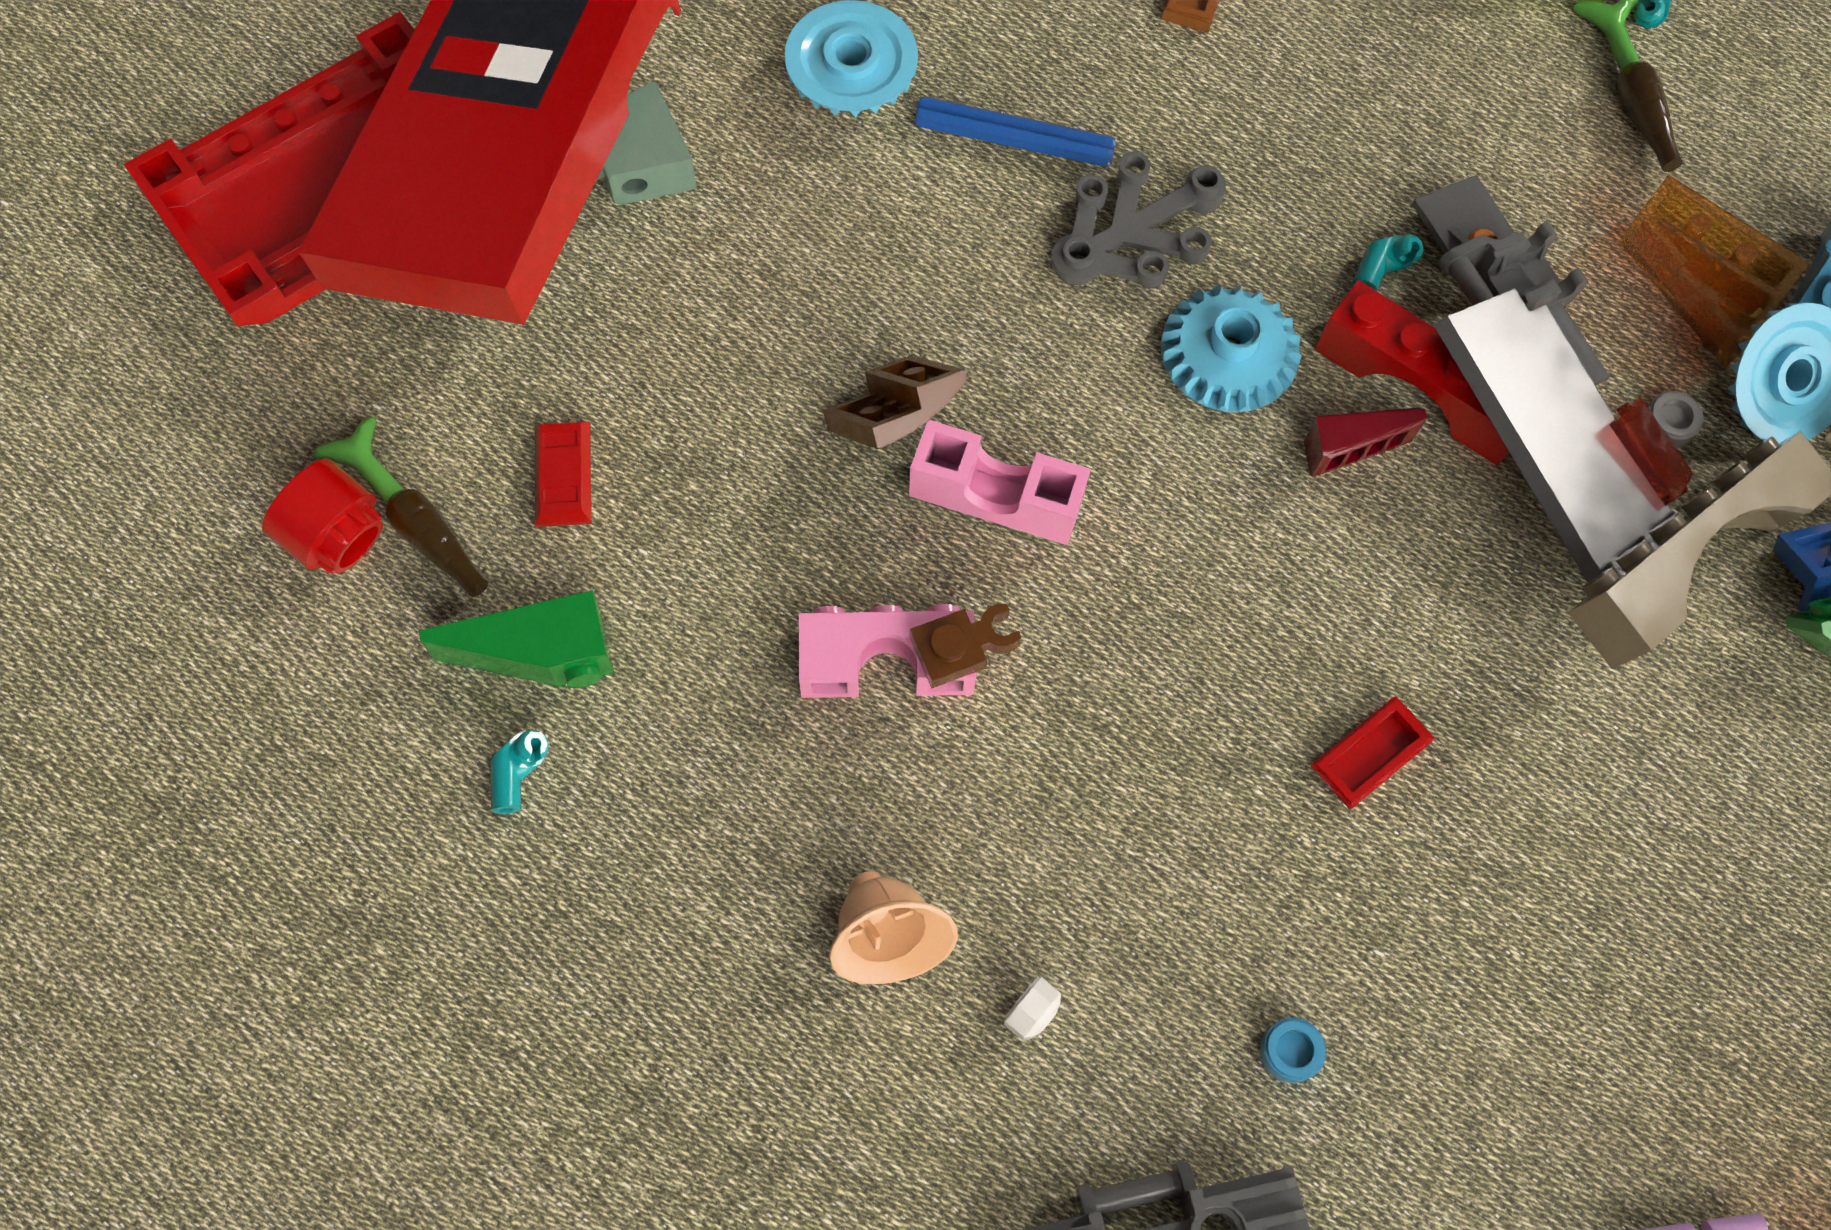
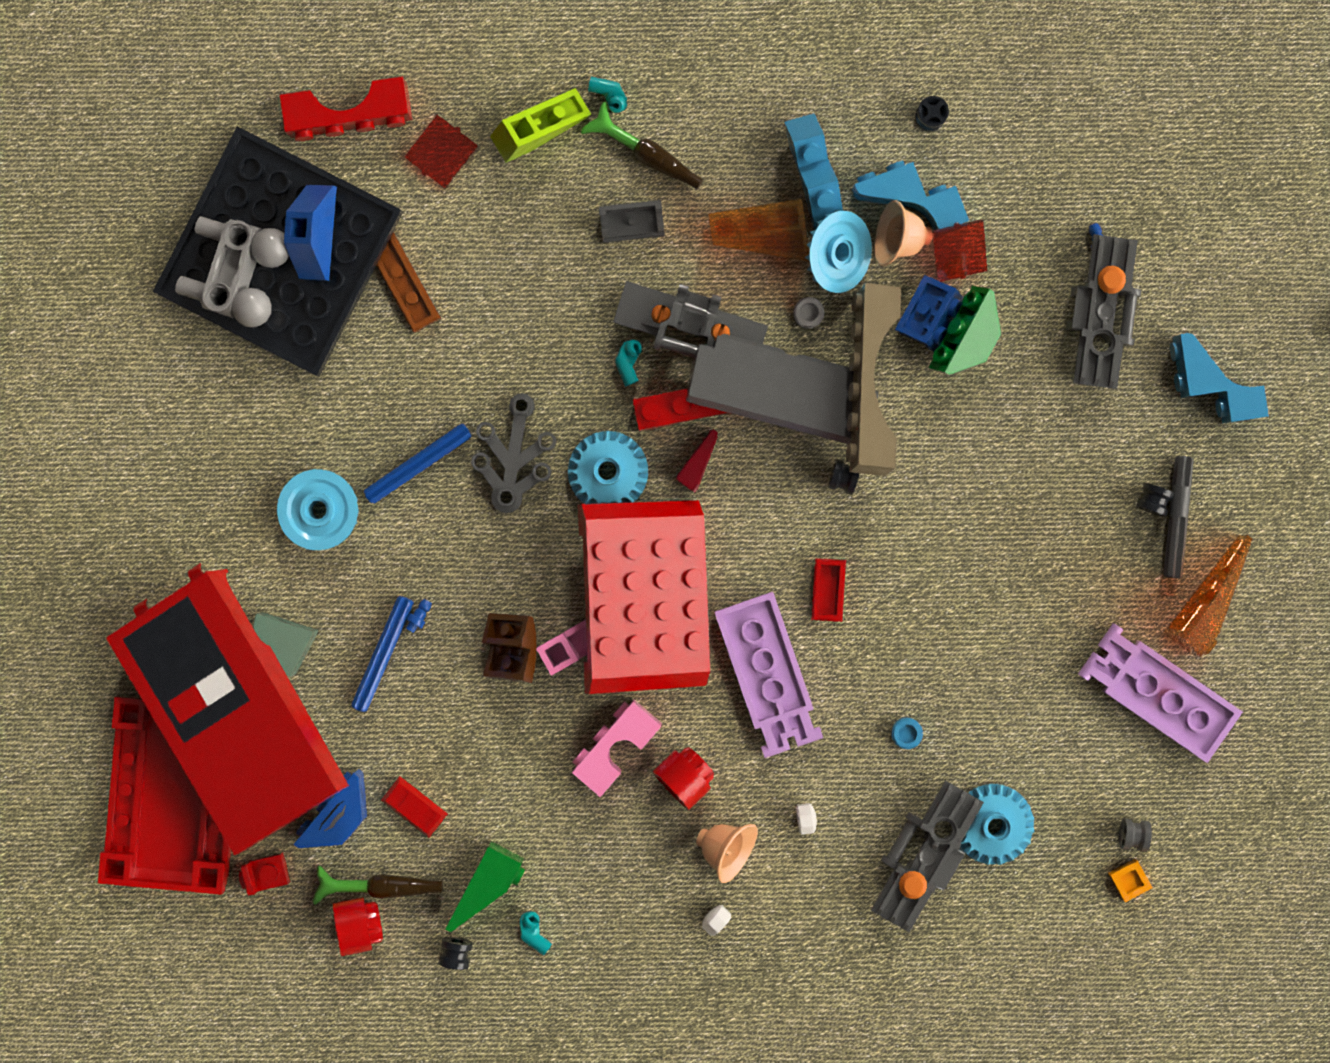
camera: 45 degrees left, 20 degrees up
(304, 359) = (264, 873): none -> red bracket
(393, 683) = (455, 953): none -> black wheel
(469, 382) = (337, 816): none -> blue slope
(735, 274) = (382, 654): none -> blue axle
(761, 1012) = (716, 920): none -> white tile
(821, 278) = (416, 619): none -> blue piece
(934, 776) = (685, 776): none -> red piece
(956, 648) = (642, 725): reddish brown plate -> none
(1124, 509) = (645, 596): none -> slope
(1182, 771) = (768, 672): none -> lavender hinge
(1537, 635) = (843, 478): none -> black wheel
(1548, 126) = (631, 221): none -> dark grey hinge
(1652, 450) = (815, 348): clear red piece -> none

